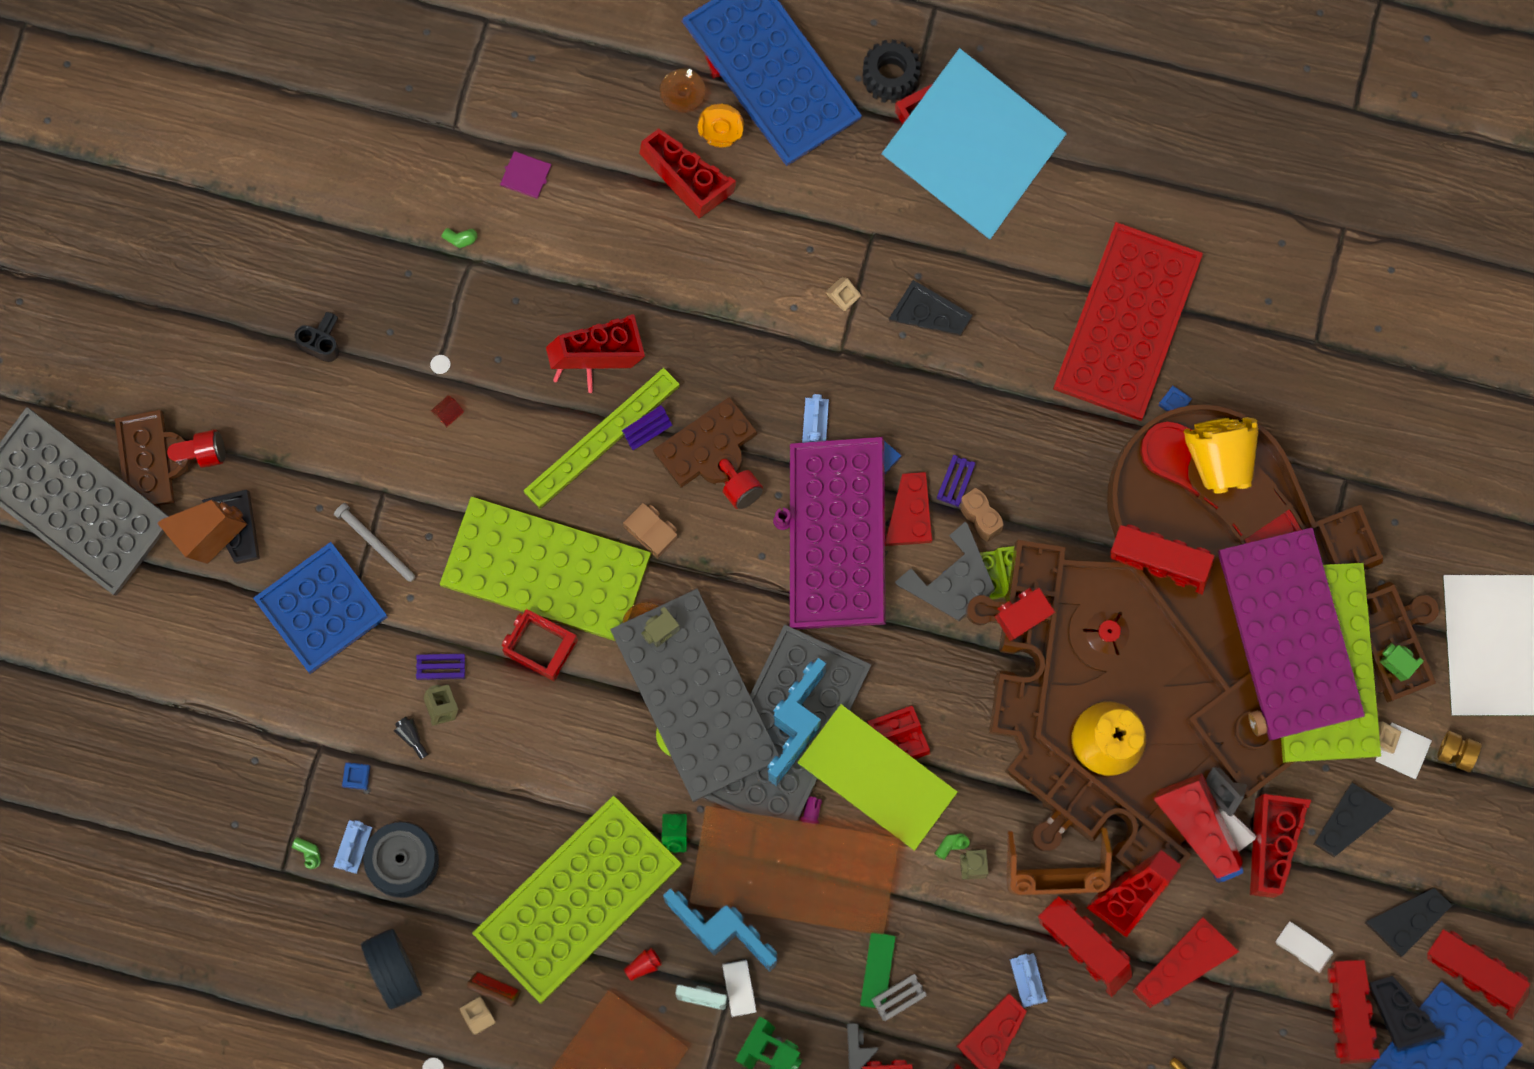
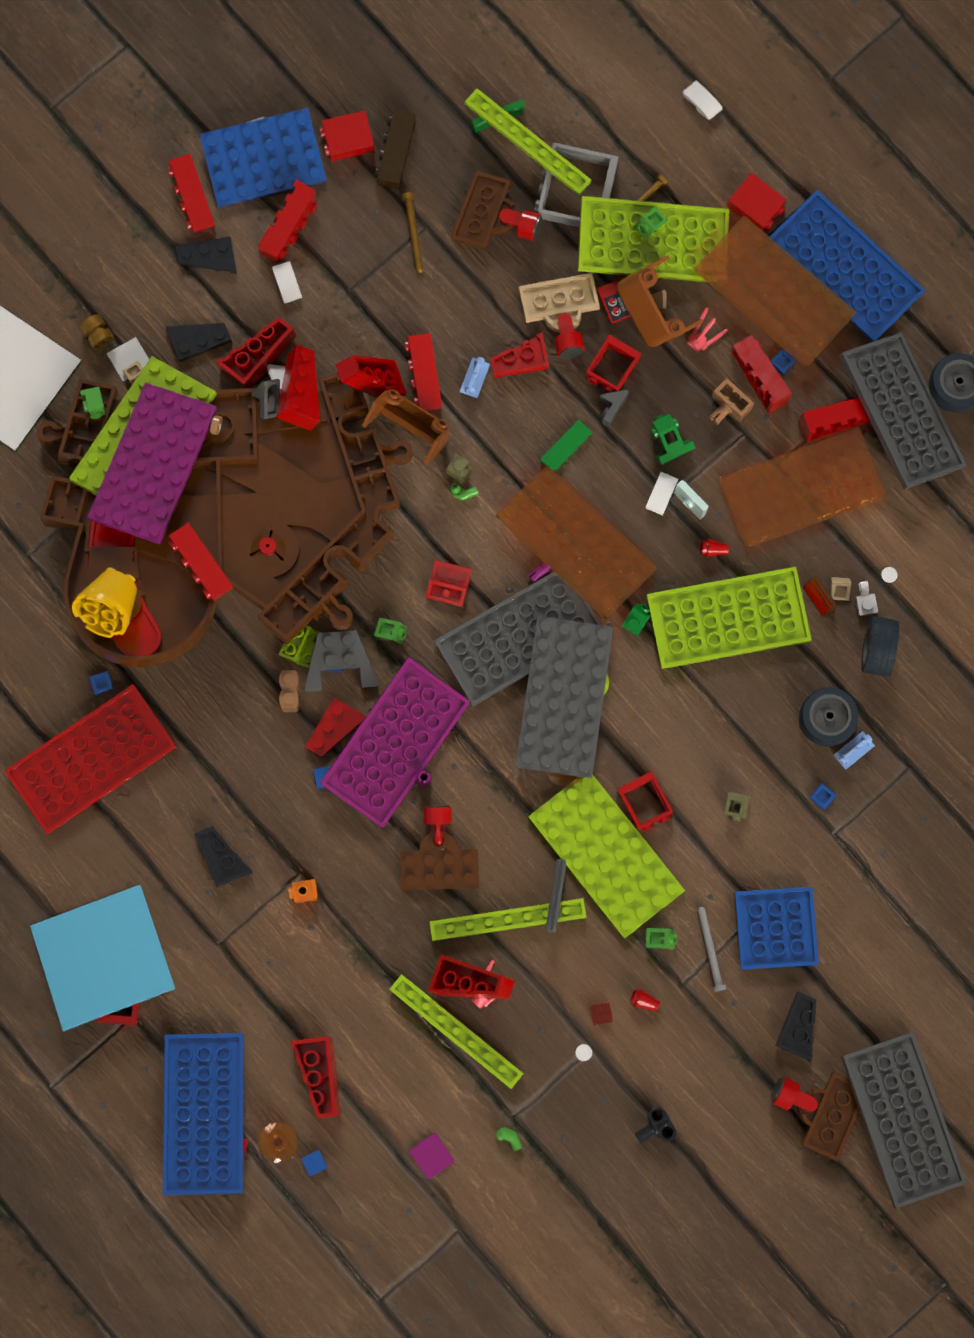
camera: 150 degrees left, 5 degrees up
(203, 529) = (826, 1031): dark orange slope -> none
(310, 852) = (884, 764): bright green arm -> none
(408, 732) = (770, 802): black cone -> none
(411, 449) = (643, 1000): none -> red cone
(433, 519) = (661, 938): none -> bright green bracket
(439, 1018) = (866, 603): none -> white plate
(440, 657) = (724, 827): dark purple tile -> none
(568, 489) = (556, 893): none -> dark grey axle
(580, 300) = (456, 1031): none -> lime plate
(634, 97) = (314, 1163): none -> blue tile
(647, 431) = (472, 905): dark purple tile -> none
(650, 530) = (518, 831): medium nougat brick -> none
(660, 628) = (560, 750): olive brick -> none
(720, 125) = (269, 1094): light orange tile -> none
(721, 929) = (650, 533): dark azure bracket -> none
(796, 721) = (512, 629): dark azure bracket -> none
(815, 419) = (353, 833): light blue hinge -> none
(823, 340) = (311, 891): none -> orange brick
(843, 293) = (270, 913): tan slope -> none
(877, 777) = (482, 564): lime tile -> none
(891, 54) = (103, 1049): black tyre -> none
(915, 987) = (564, 416): light grey tile -> none
(922, 646) = (391, 630): none -> bright green bracket
(962, 462) = (301, 719): dark purple tile -> none
(1023, 614) = (318, 586): red brick -> none
(1094, 740) = (318, 478): yellow cone -> none
(1188, 960) = (368, 321): red wedge -> none
(1402, 1017) = (259, 200): black wing -> none

